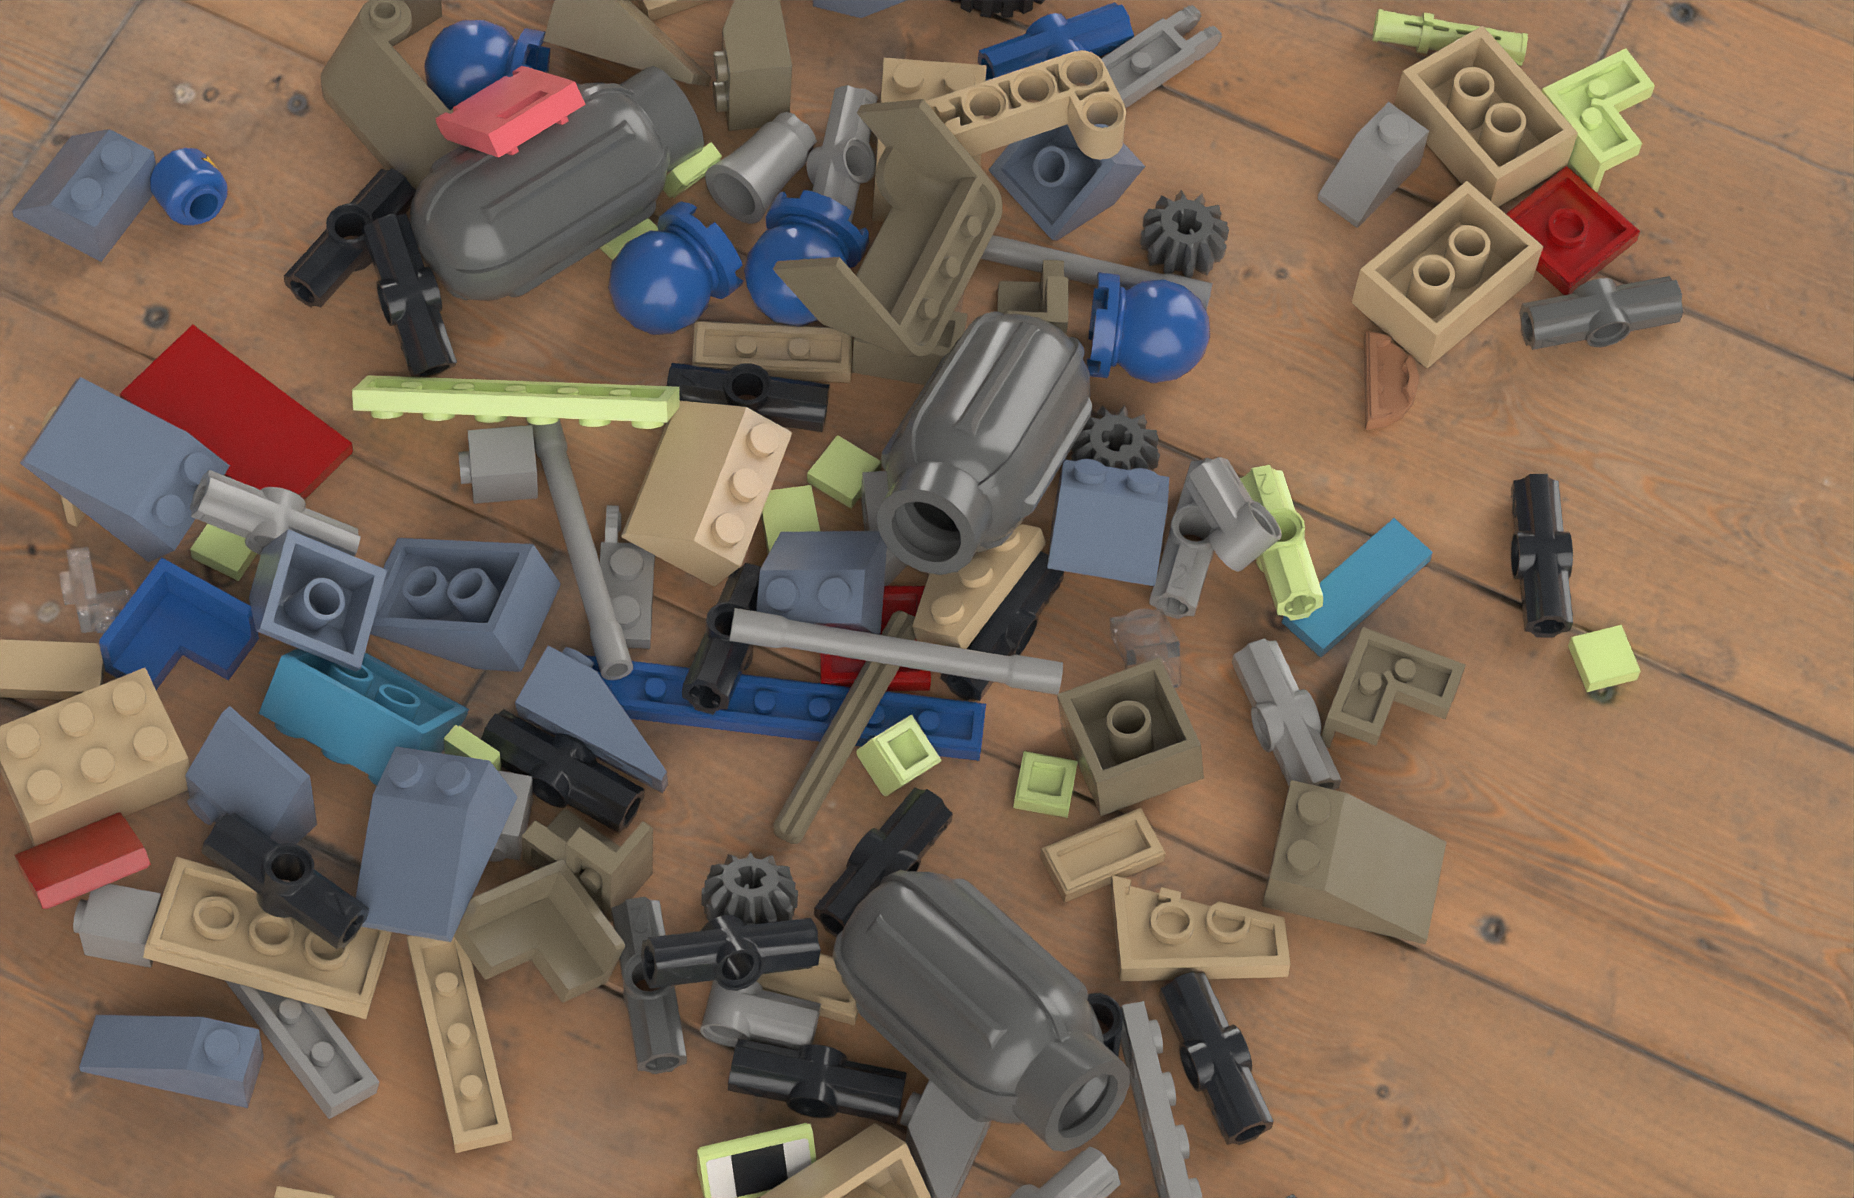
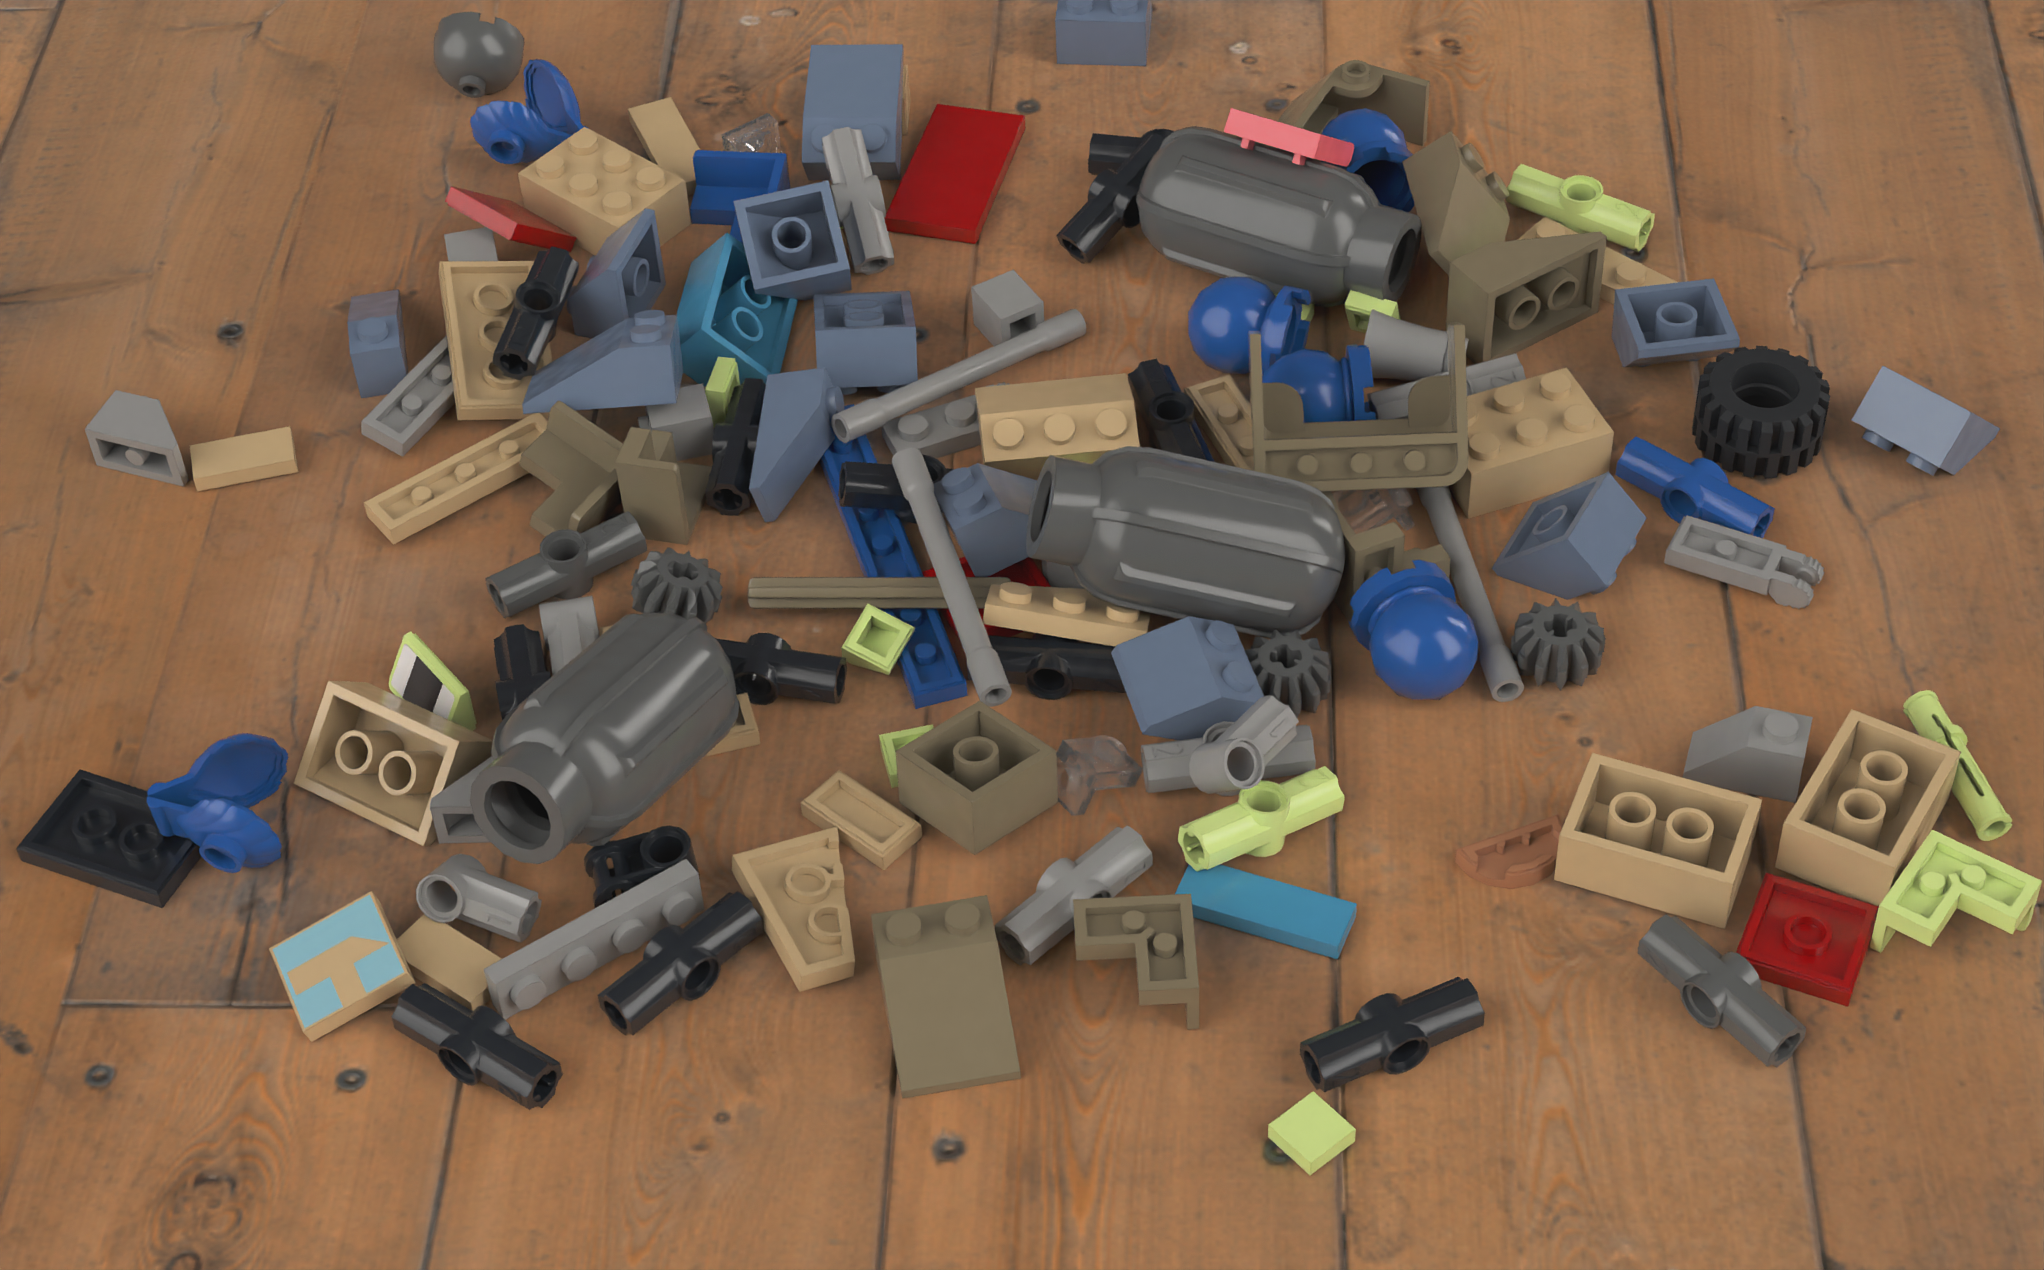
camera: 75 degrees right, 15 degrees down
(188, 186) = (1143, 66): blue head -> none
(496, 399) = (1063, 287): yellowish green plate -> none
(730, 952) = (590, 571): black piece -> none
(1059, 105) = (1593, 460): tan beam -> none

